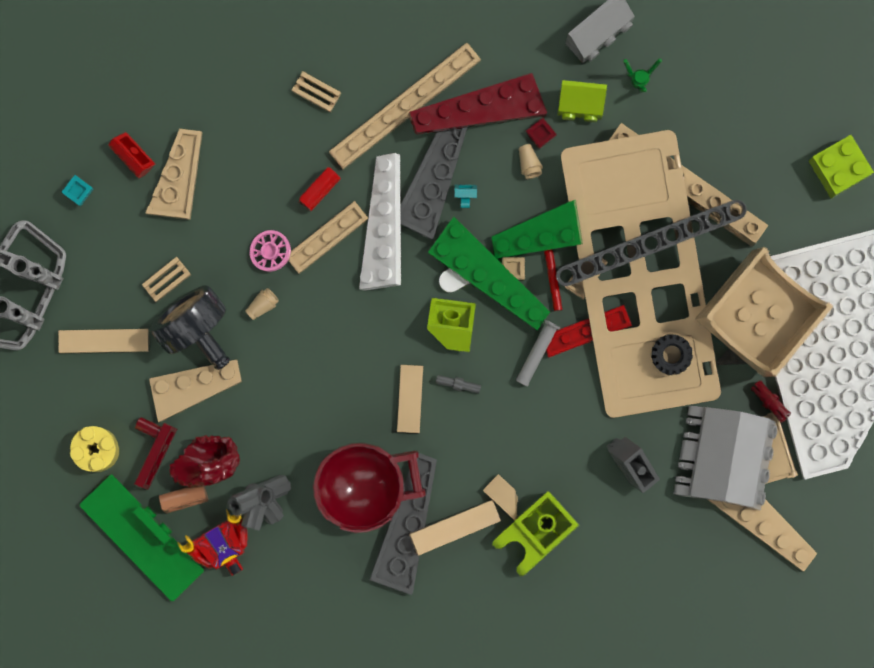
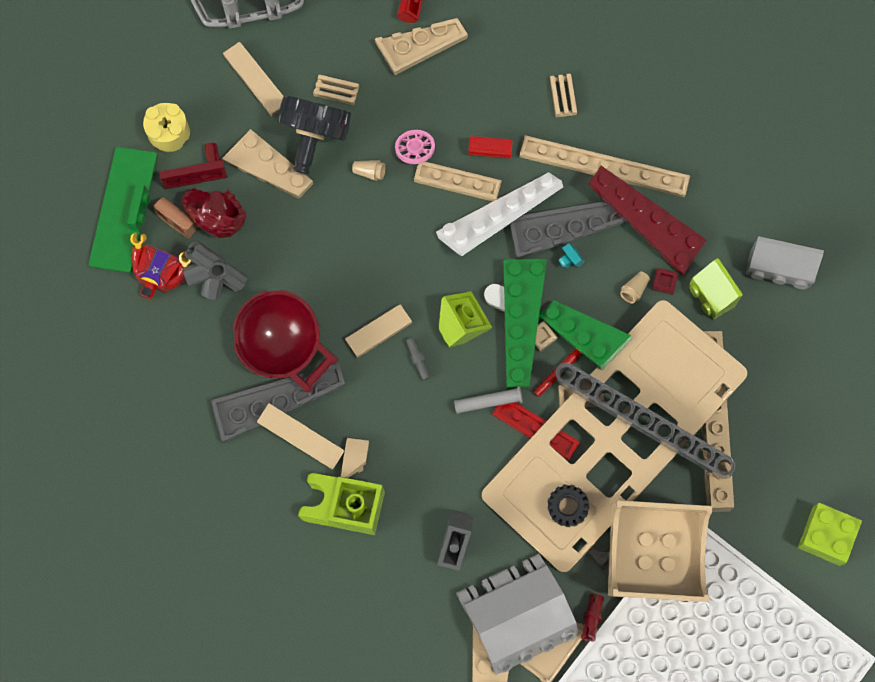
camera: 55 degrees right, 10 degrees down
(640, 77) = (770, 323): green plant -> none

